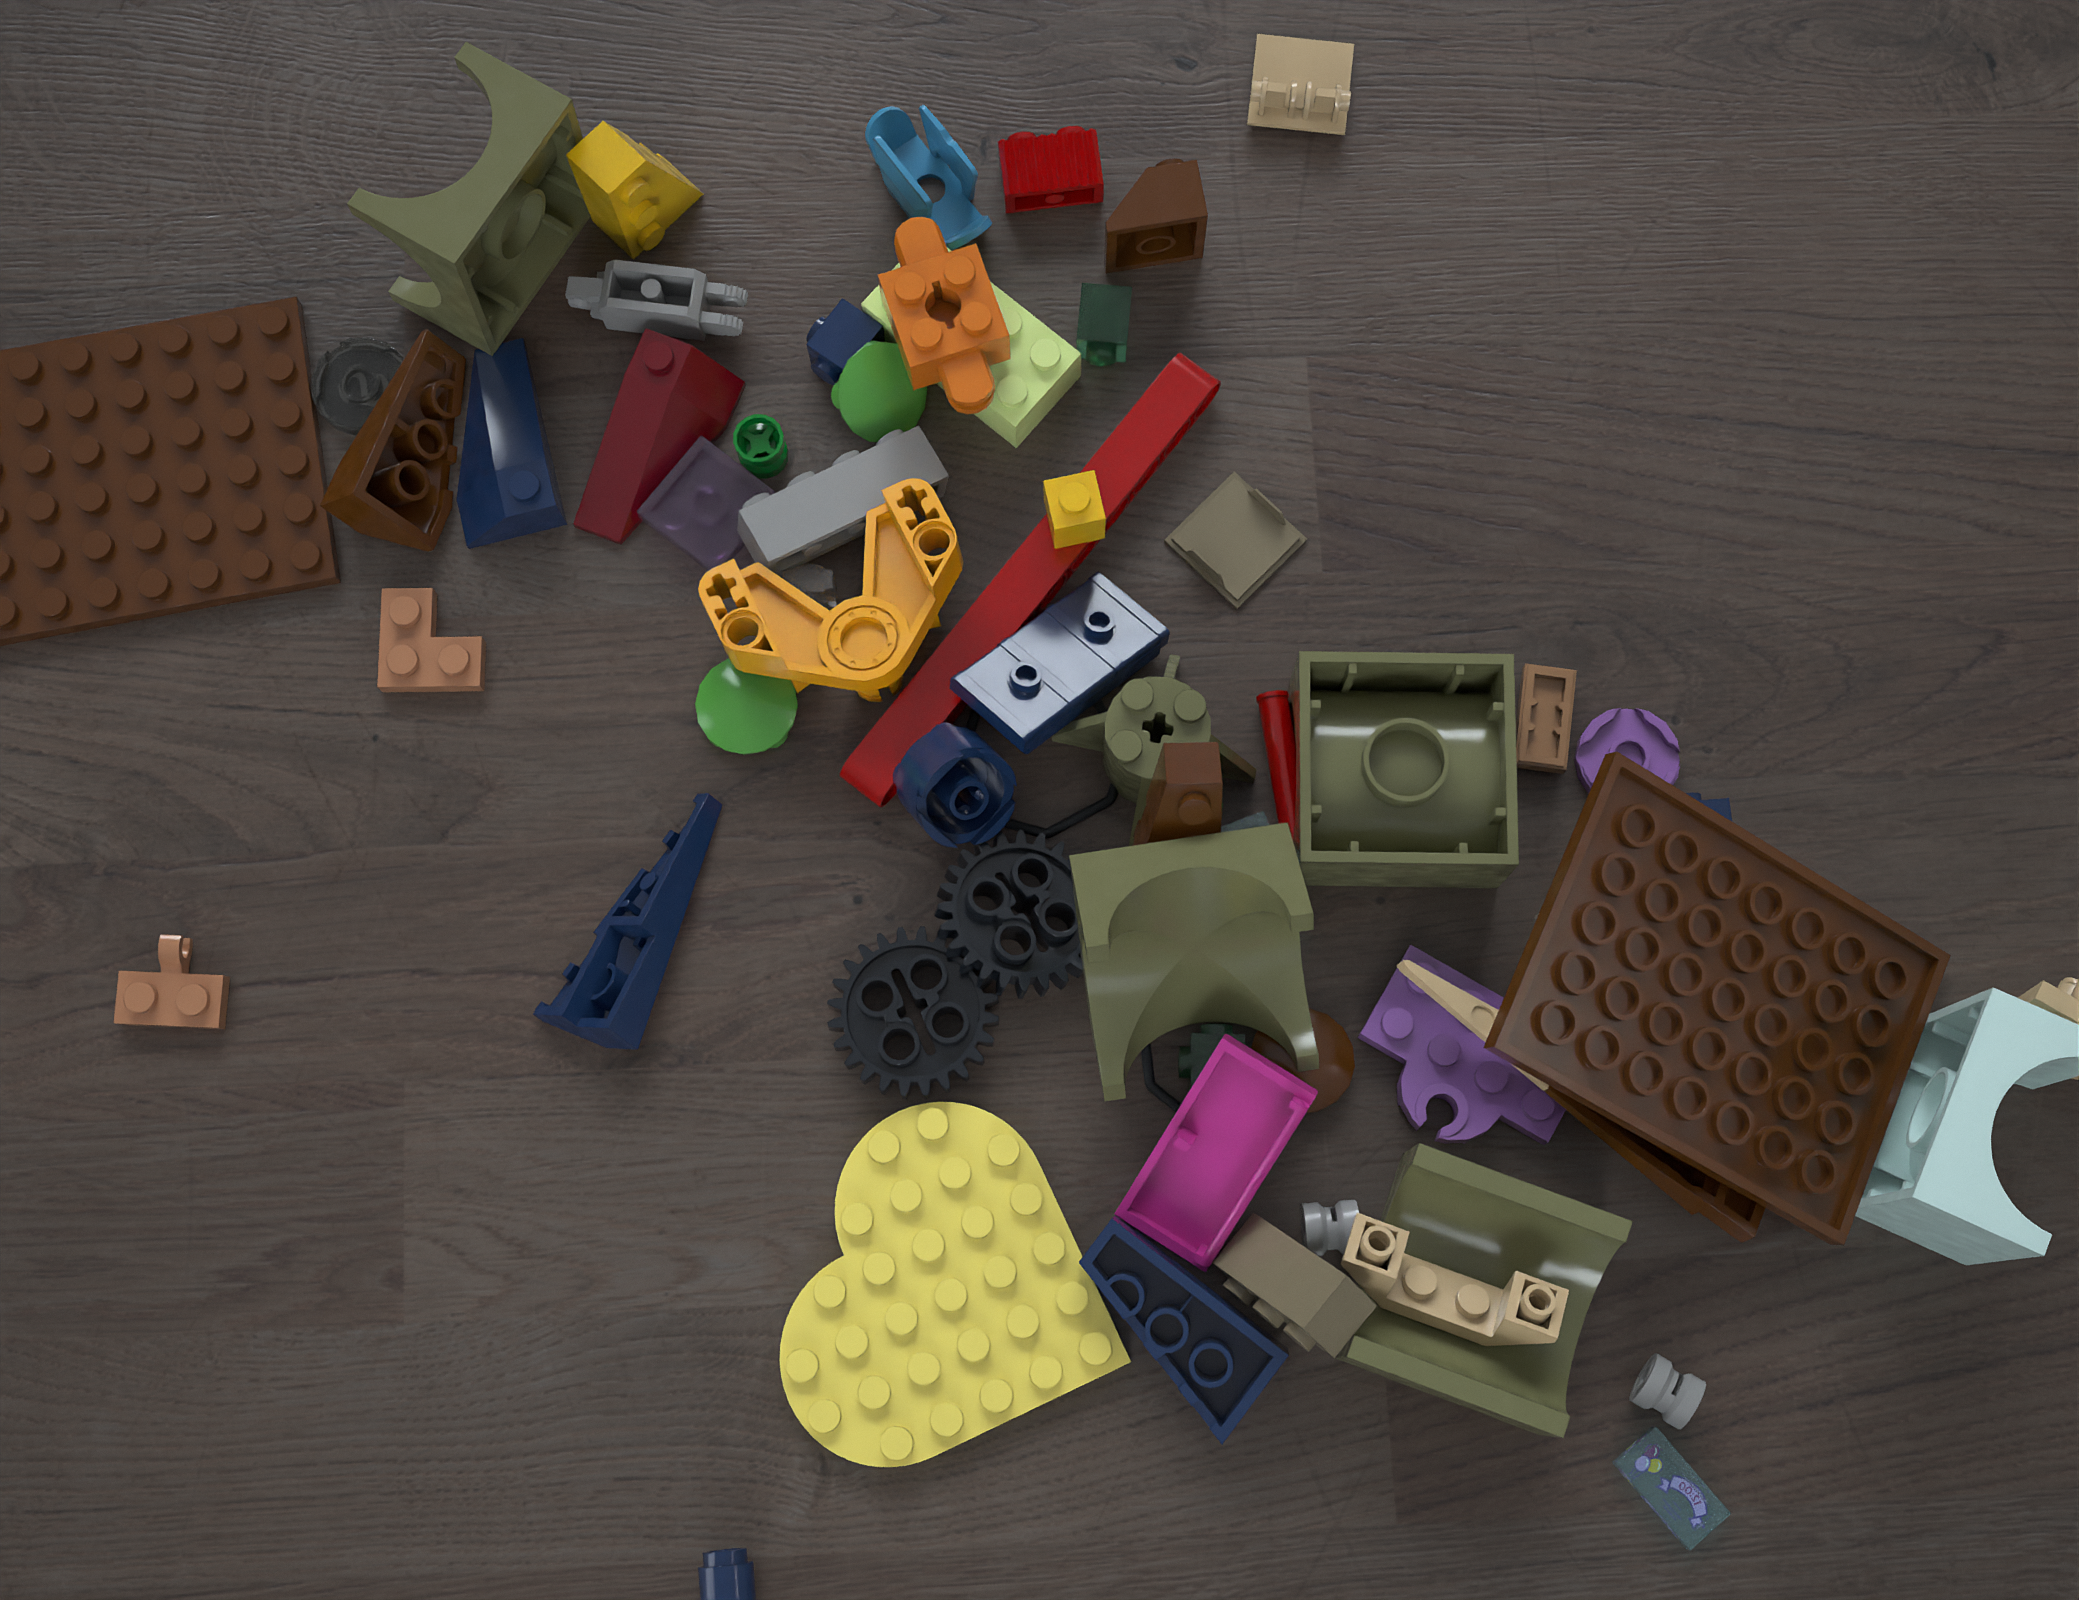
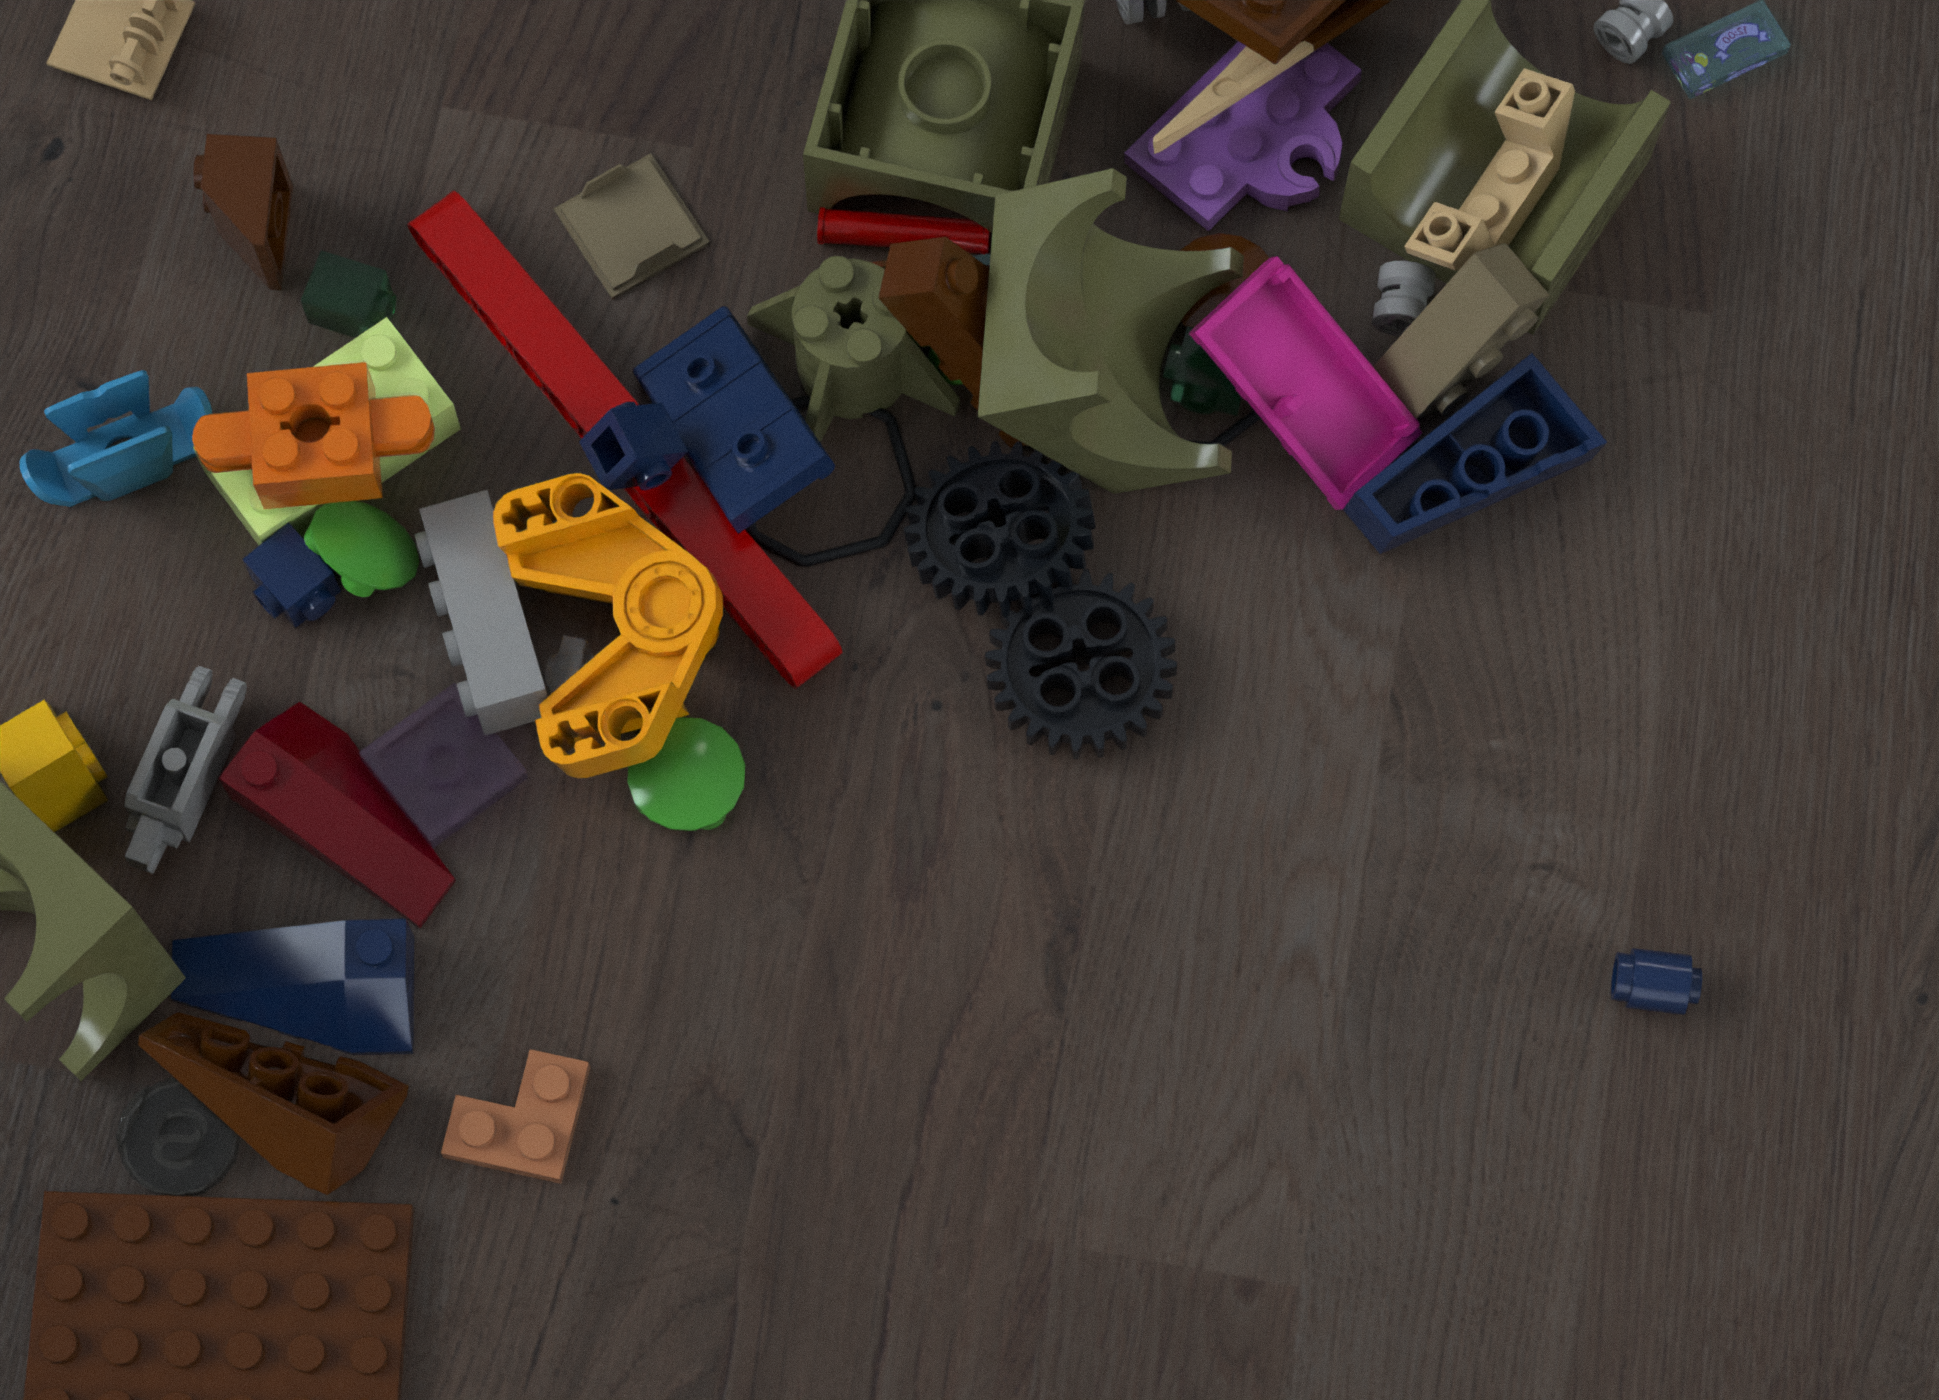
camera: 80 degrees left, 5 degrees down
(621, 975) = (962, 969): dark blue wedge -> none
(754, 437) = (380, 682): green wheel -> none
(949, 1294) = (1392, 695): light yellow plate -> none
(956, 786) = (847, 554): dark blue brick -> none
(1003, 580) = (634, 446): none -> dark blue brick
(1050, 169) = (146, 312): red brick -> none
(1074, 509) = (571, 358): yellow brick -> none

